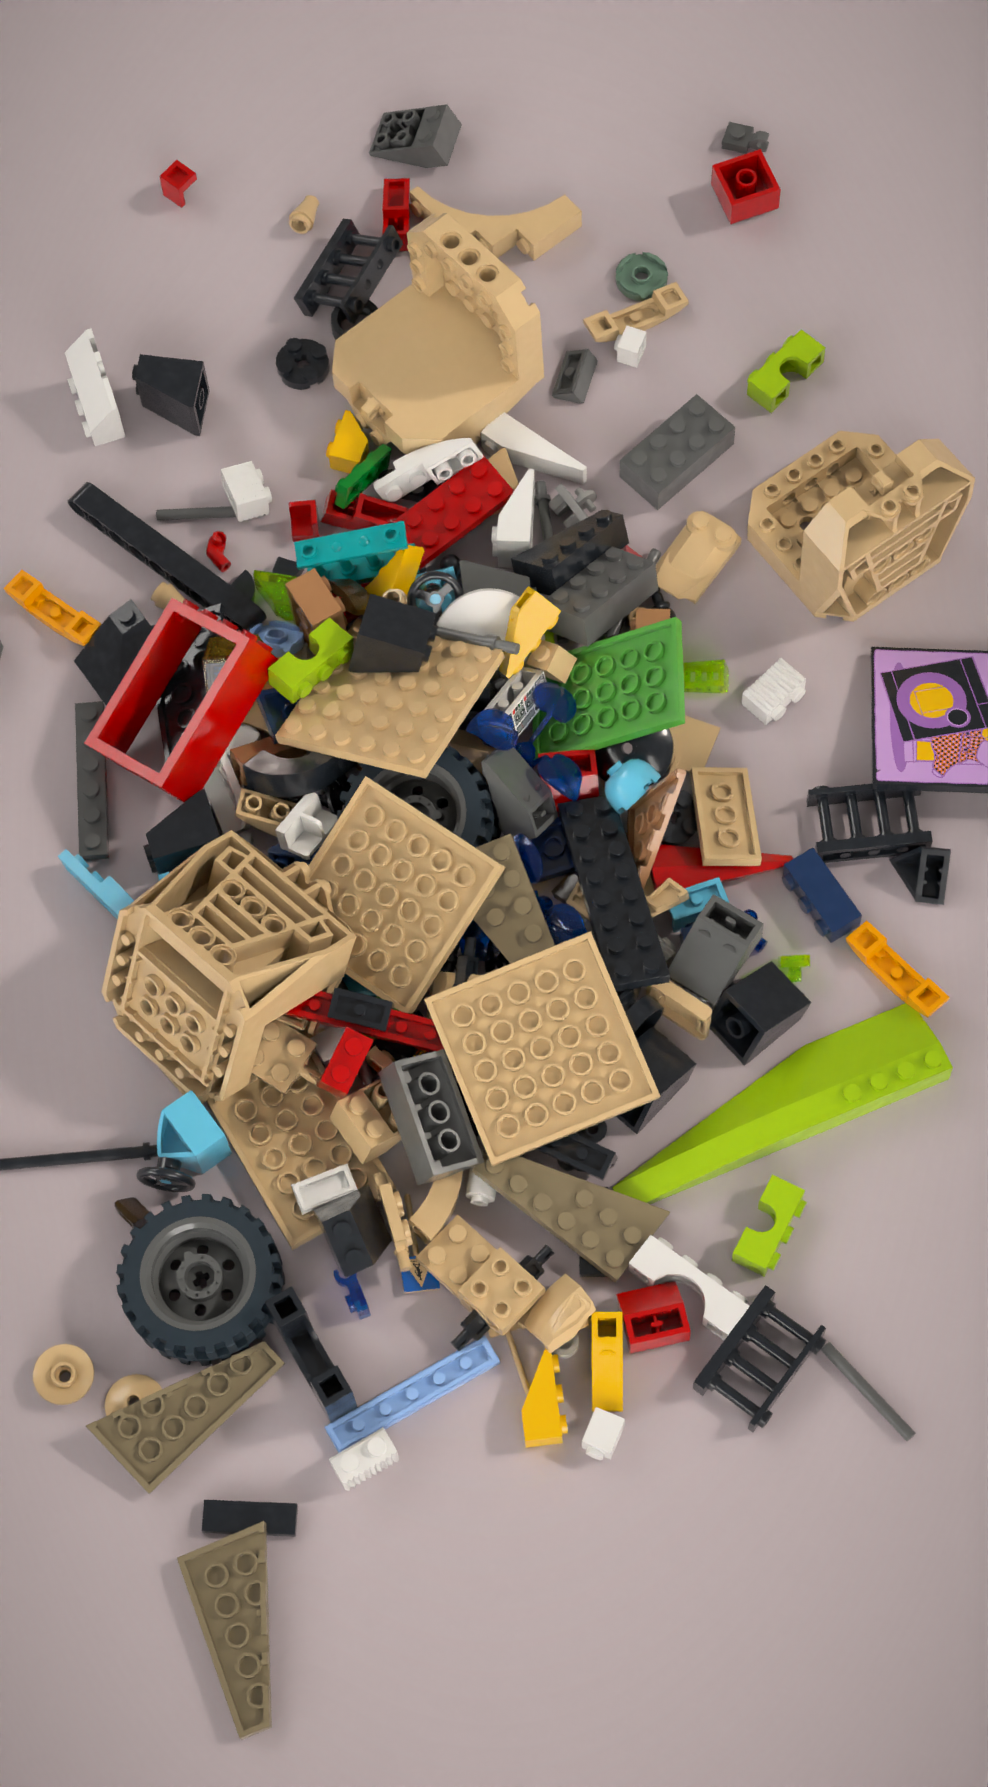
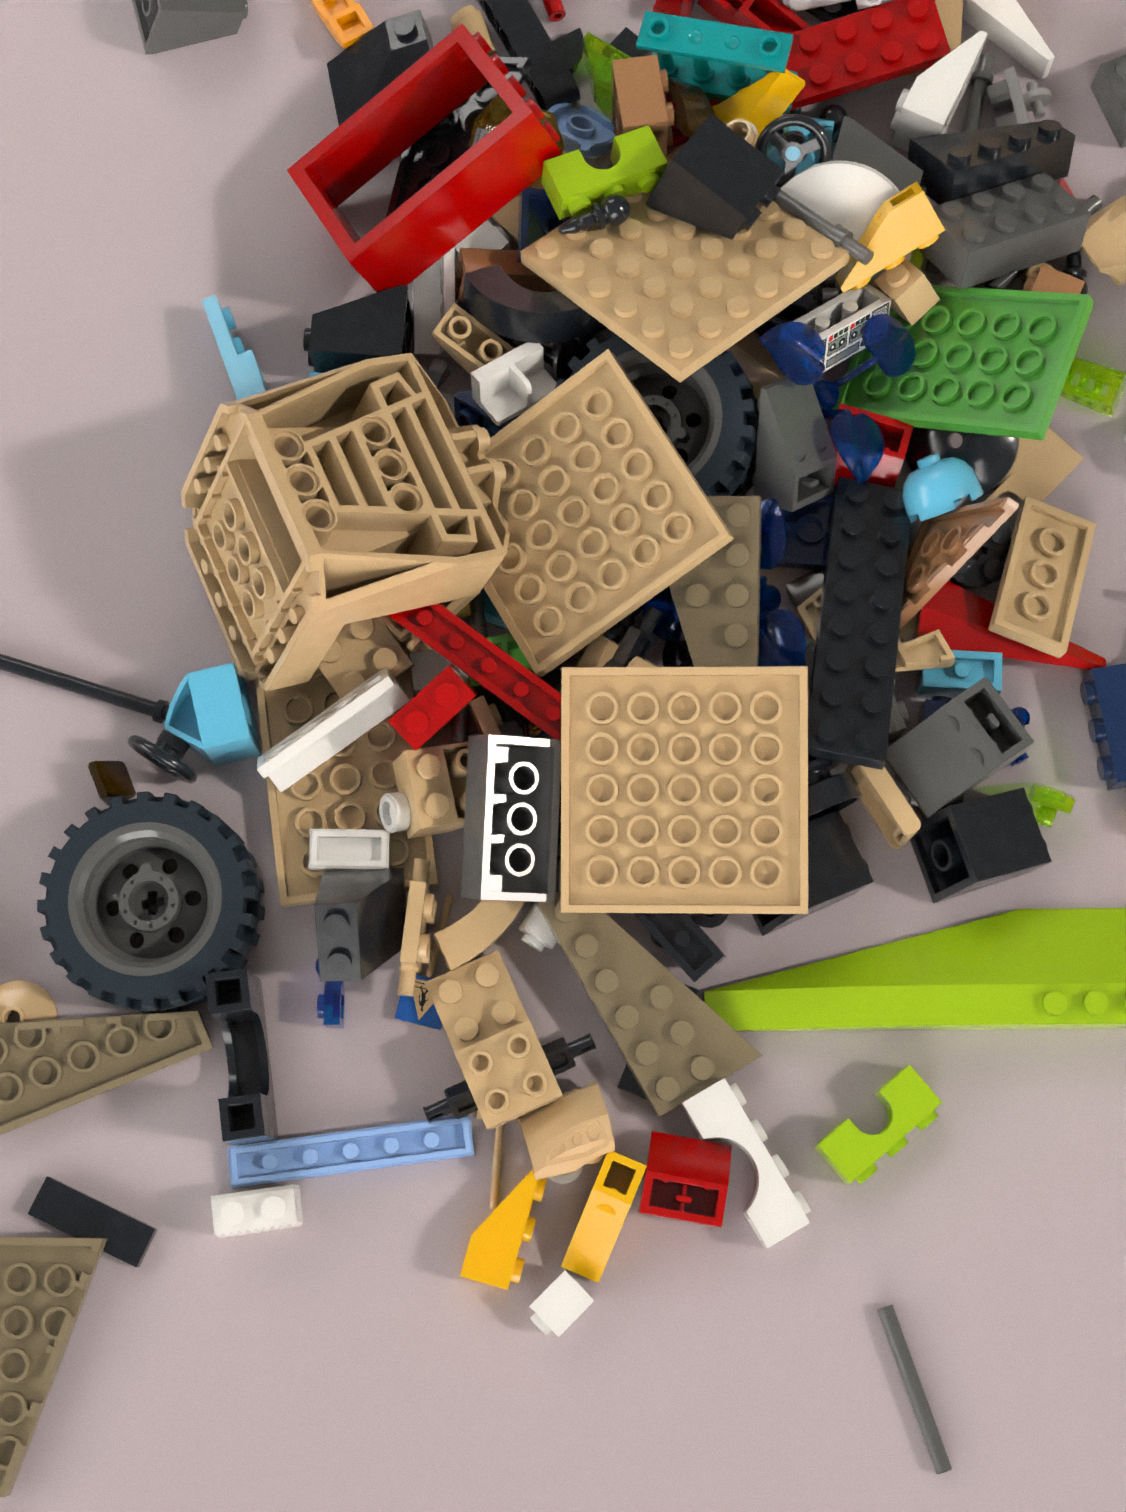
camera: 20 degrees right, 10 degrees up
(91, 786) = (278, 236): dark grey plate -> none
(279, 1109) = (332, 730): none -> white fence
(327, 684) = (612, 211): none -> black bar
(346, 1148) = (395, 812): none -> white tile
(360, 1009) = (478, 647): black panel -> none
(747, 1331) = (759, 1271): black fence -> none

